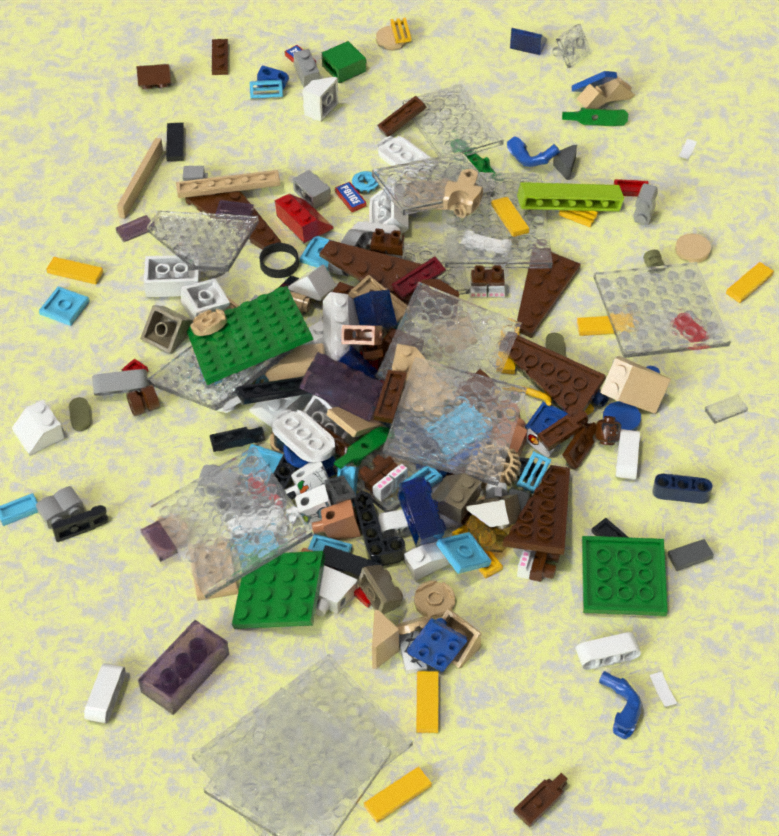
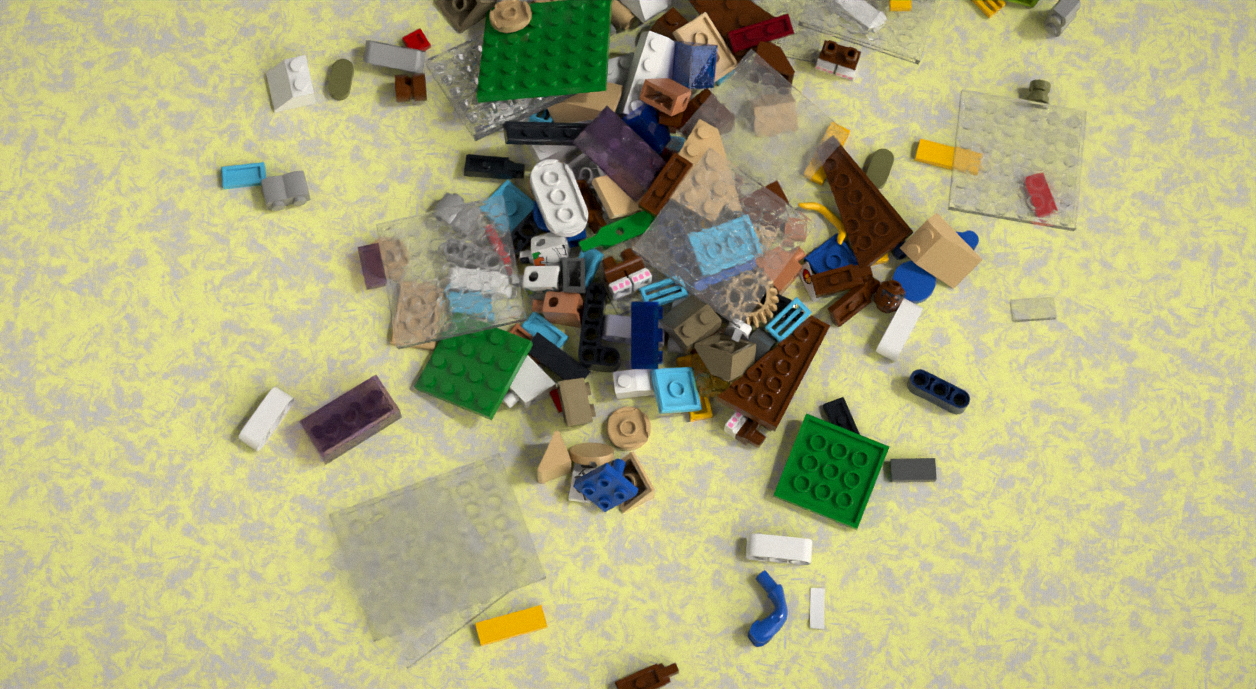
camera: 15 degrees right, 20 degrees up
(80, 523) = (300, 217): black hinge -> none
(427, 702) = (577, 538): yellow tile -> none
(543, 290) = (897, 89): reddish brown wing -> none
(693, 247) = (1093, 87): tan tile -> none
(749, 282) = (1137, 155): yellow tile -> none

